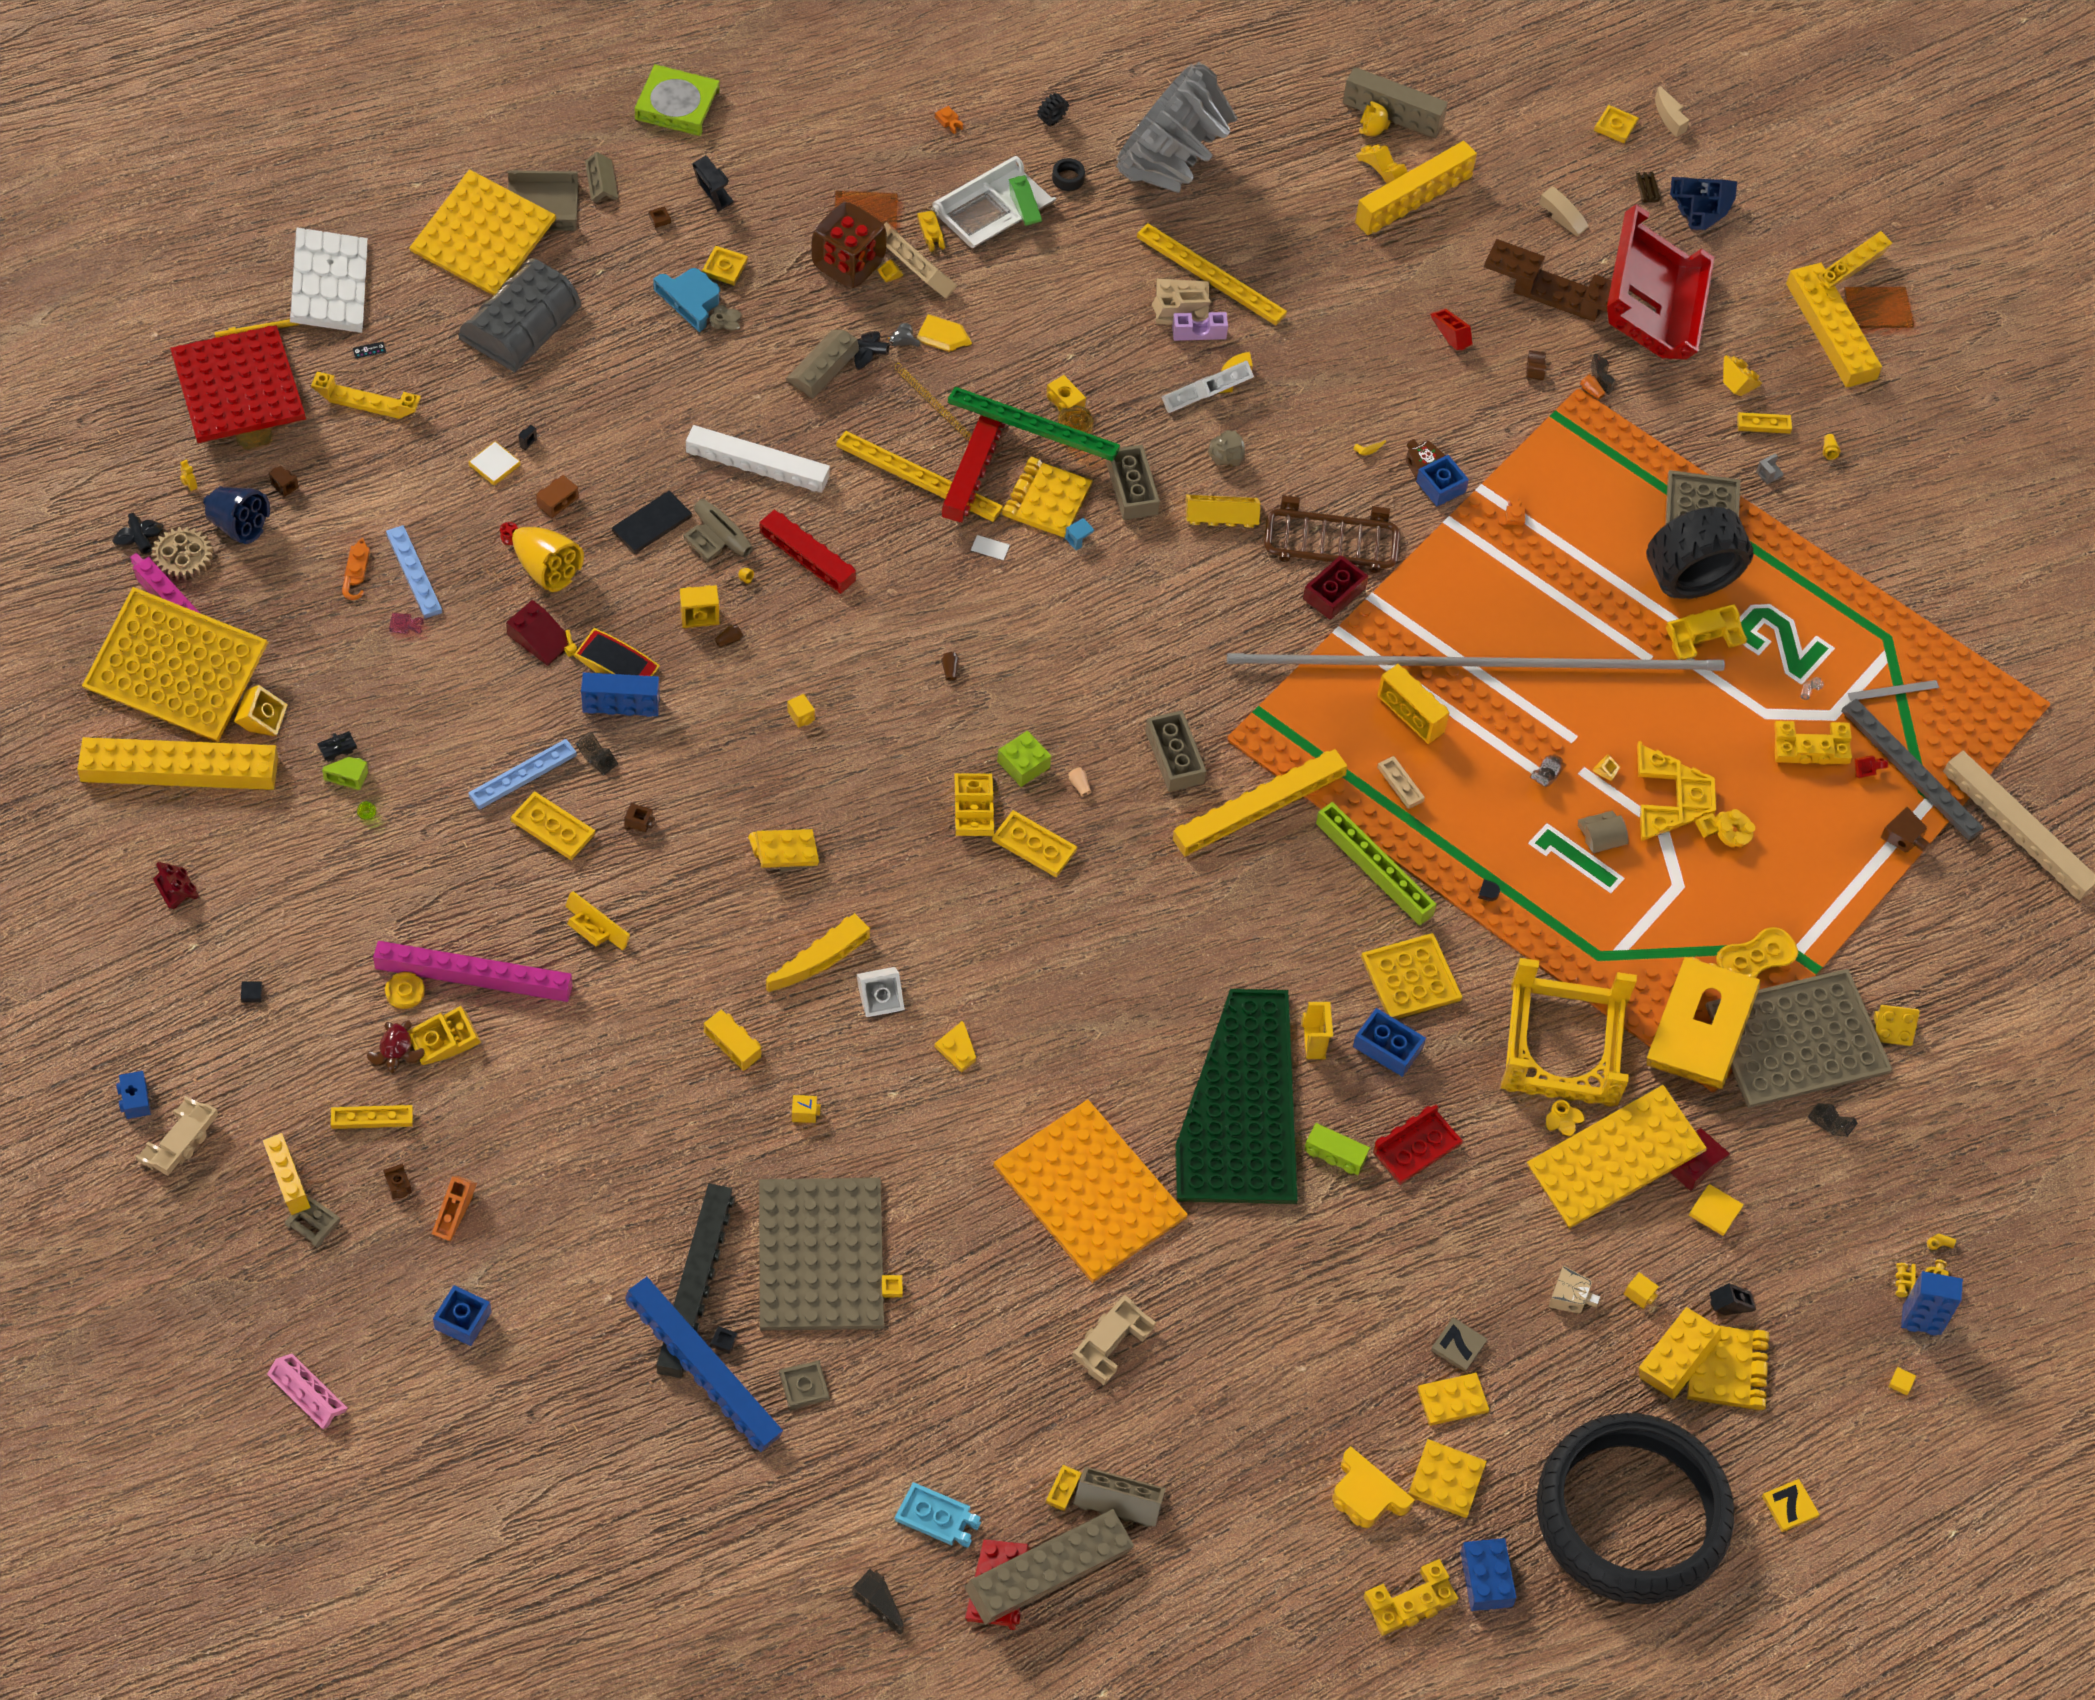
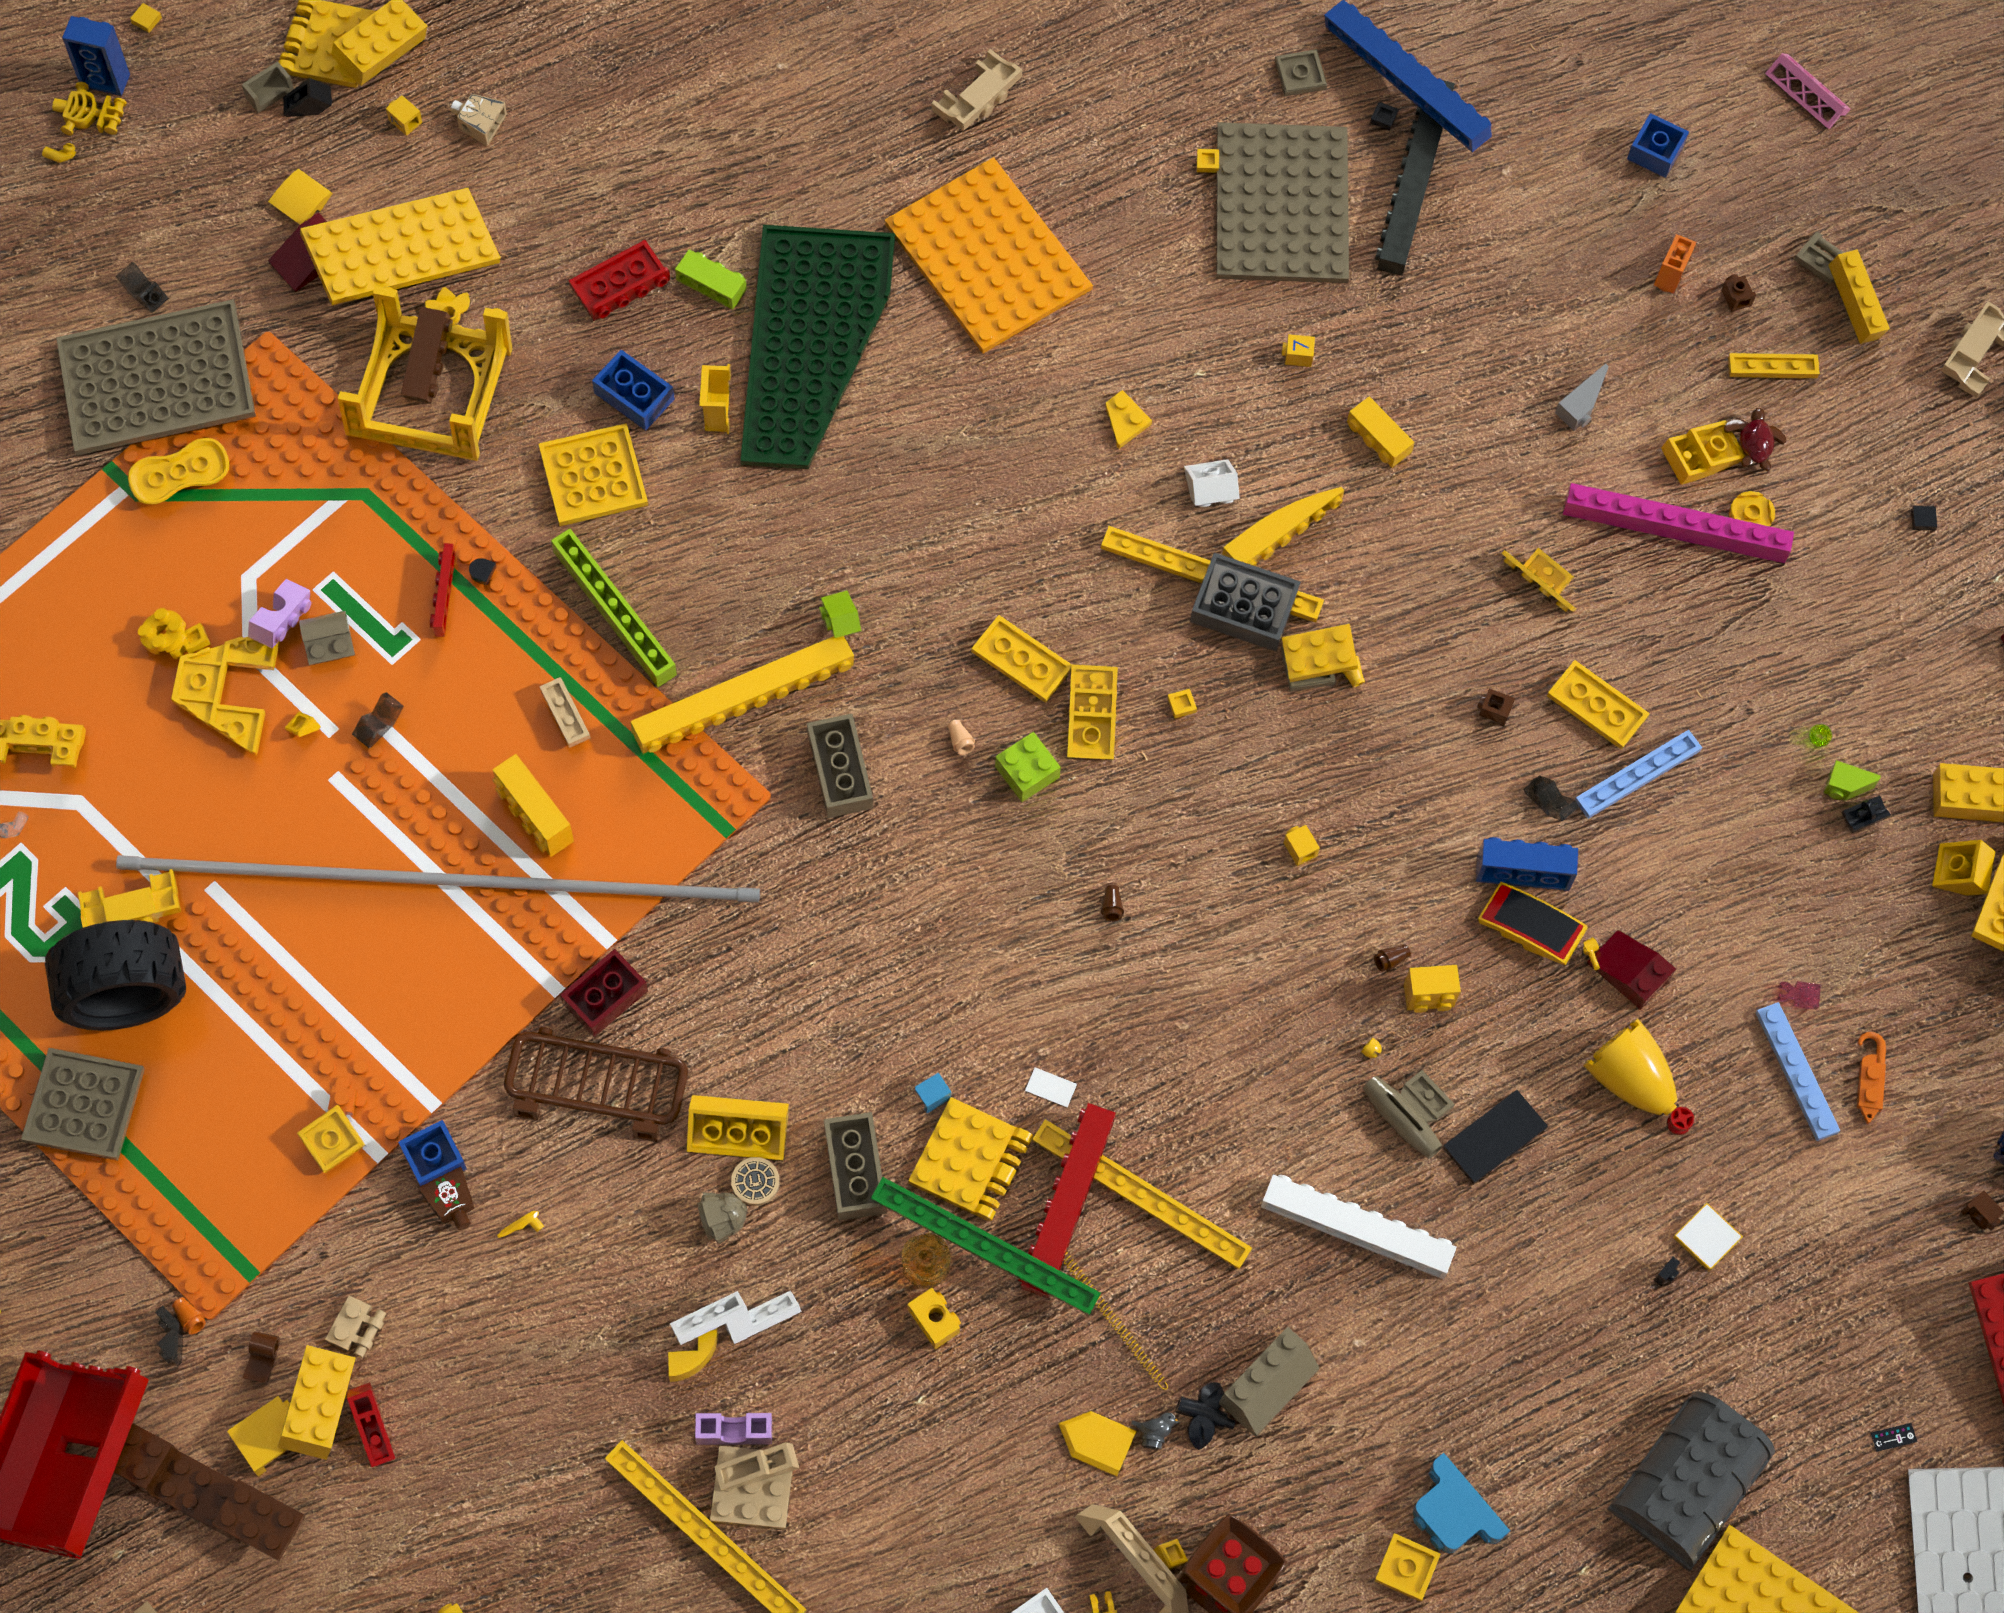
camera: 175 degrees left, 10 degrees up
(363, 400) = (1933, 1359): yellow slope -> none
(551, 1073) = (1578, 405): none -> light grey slope
(557, 496) = (1622, 1175): dark orange brick -> none
(725, 318) = (1401, 1477): dark tan plate -> none
(807, 551) = (1291, 1078): red brick -> none
(851, 883) = (1244, 601): none -> dark grey slope
(878, 916) = (1186, 565): none -> yellow plate
(900, 817) = (1182, 703): none -> yellow tile
(1188, 861) = (840, 614): none -> lime brick
(1204, 479) = (755, 1181): none -> tile
(1452, 1399) = (627, 24): yellow plate -> none
(1459, 1344) = (610, 76): dark tan tile -> none
(1480, 386) = (349, 1323): none -> tan plate
(1490, 328) = (316, 1402): none -> yellow brick
(1517, 487) = (331, 1139): none -> yellow tile
(1517, 863) = (442, 597): none -> red plate
(1519, 318) = (260, 1434): none -> yellow panel
(1572, 1059) = (426, 355): none -> reddish brown brick
(1649, 822) = (271, 626): none -> lavender arch
(1694, 1047) = (284, 353): yellow panel -> none
(1772, 1310) = (267, 87): none -> dark tan panel
(1896, 1024) = (36, 390): yellow bracket -> none

